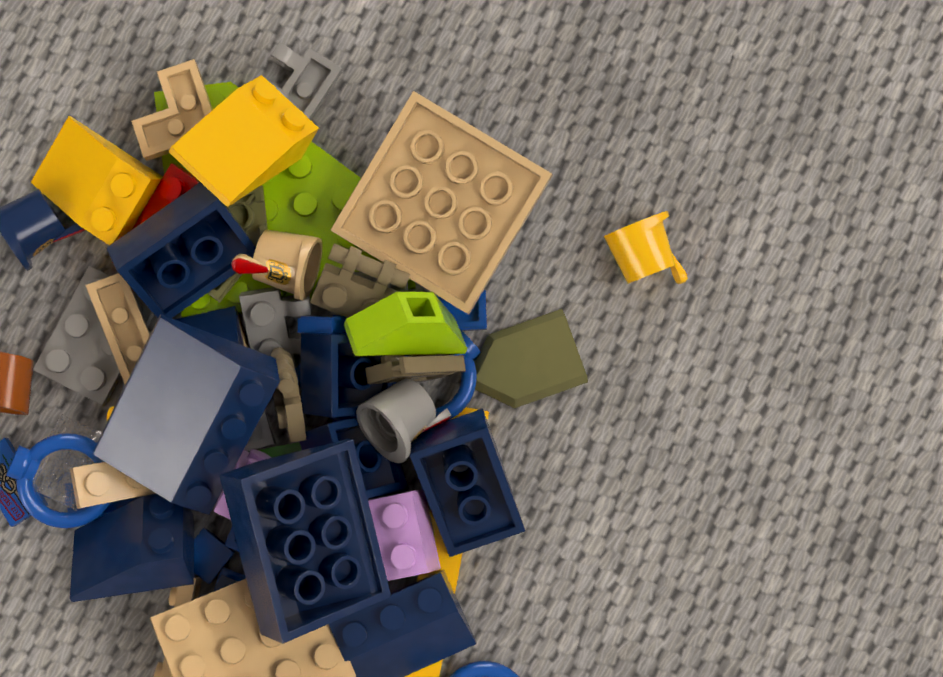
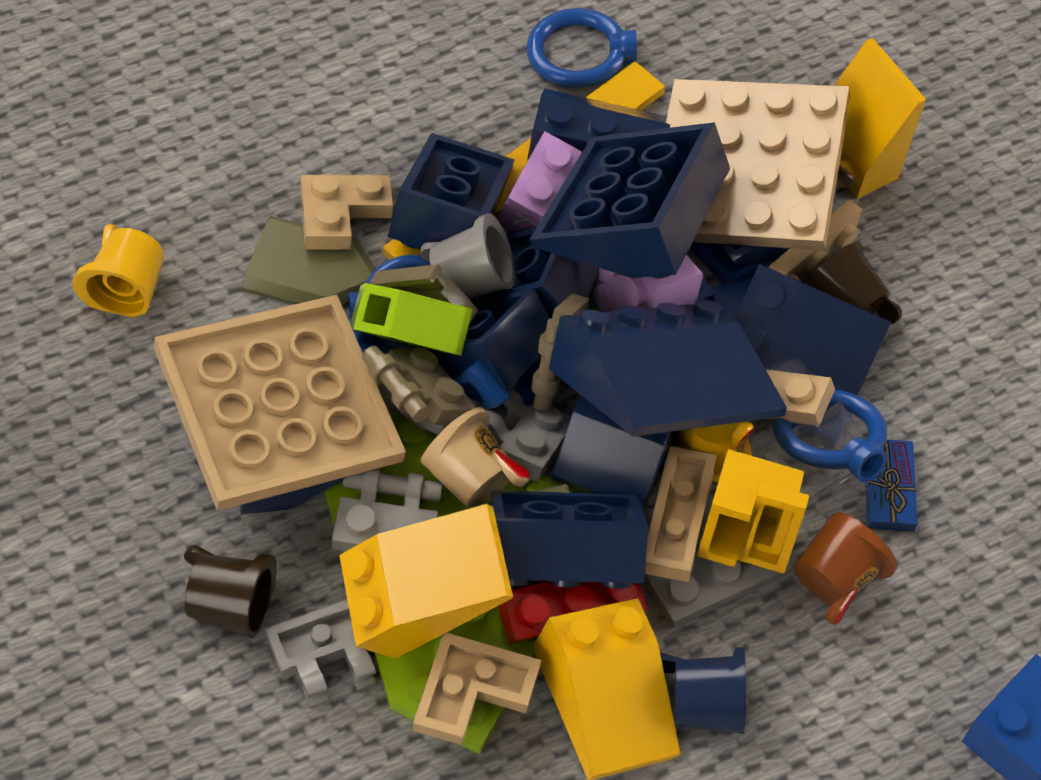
camera: 150 degrees left, 25 degrees down
(71, 360) = (754, 513): none -> yellow plate
(127, 624) = (854, 280): none -> dark brown hat
(312, 186) = (365, 517): none -> light grey plate
(383, 73) = (229, 590): none -> dark brown hat
(553, 425) = (334, 199): none -> tan plate

